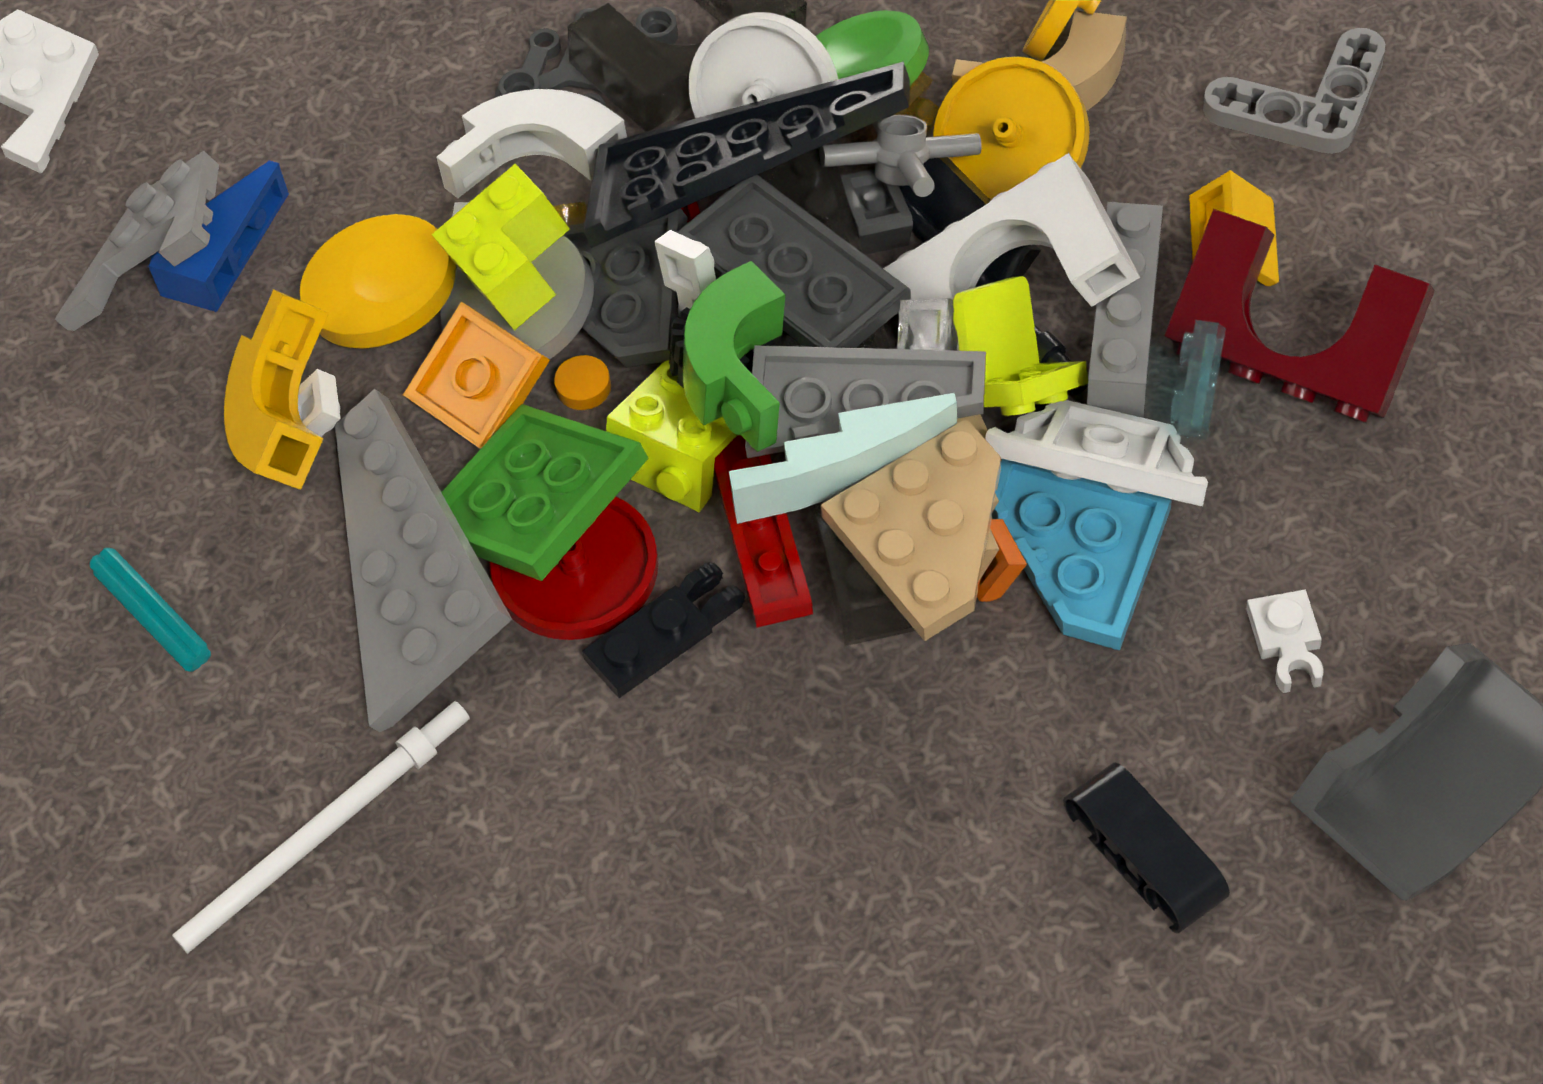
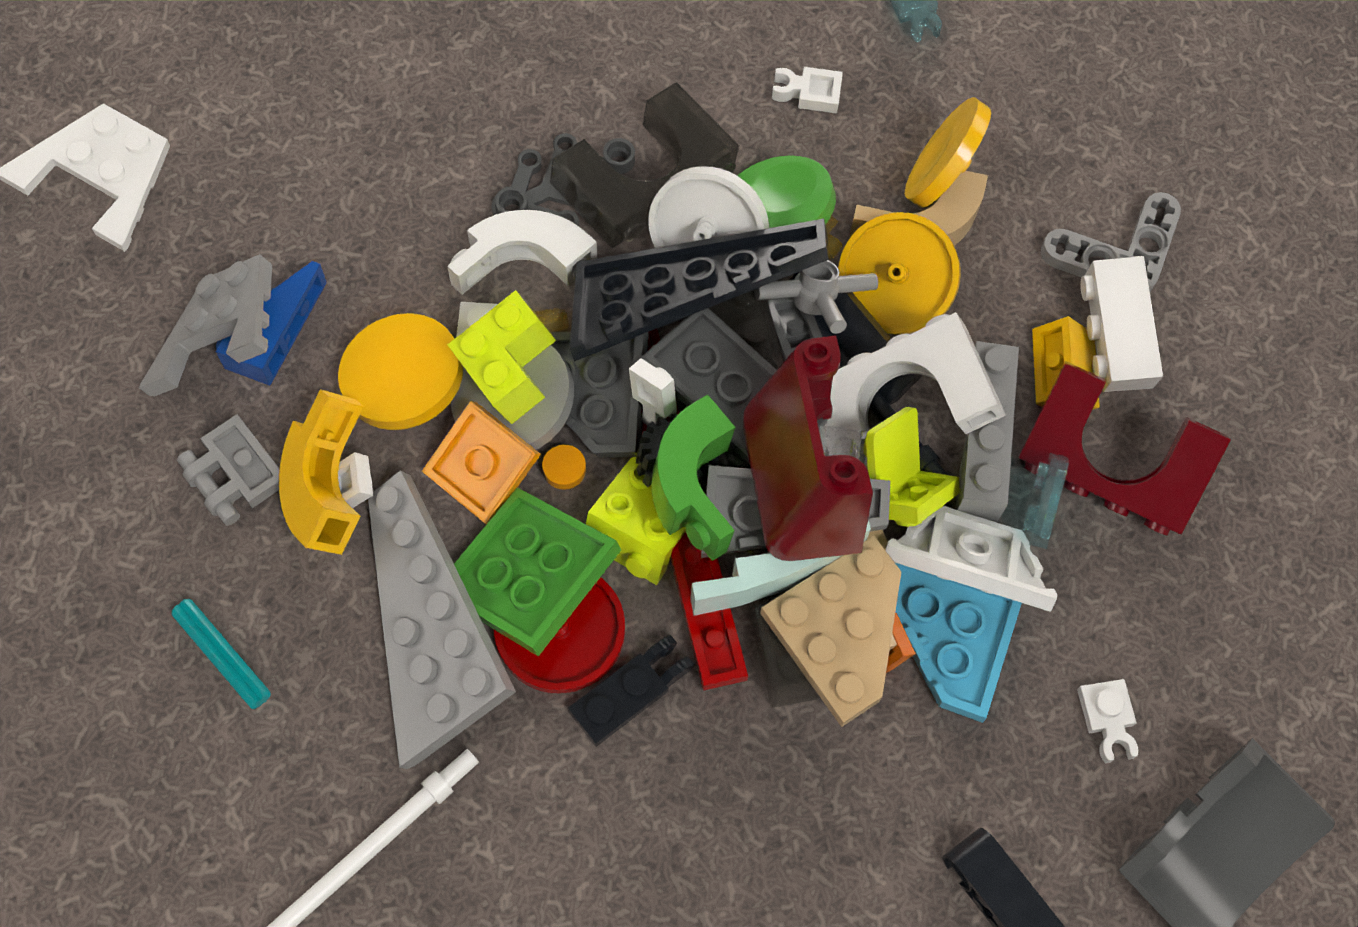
camera: 10 degrees left, 10 degrees up
(181, 392) = (244, 462): none -> light grey plate
(865, 322) = (804, 499): none -> dark red windscreen
(1302, 178) = (1122, 324): none -> white brick

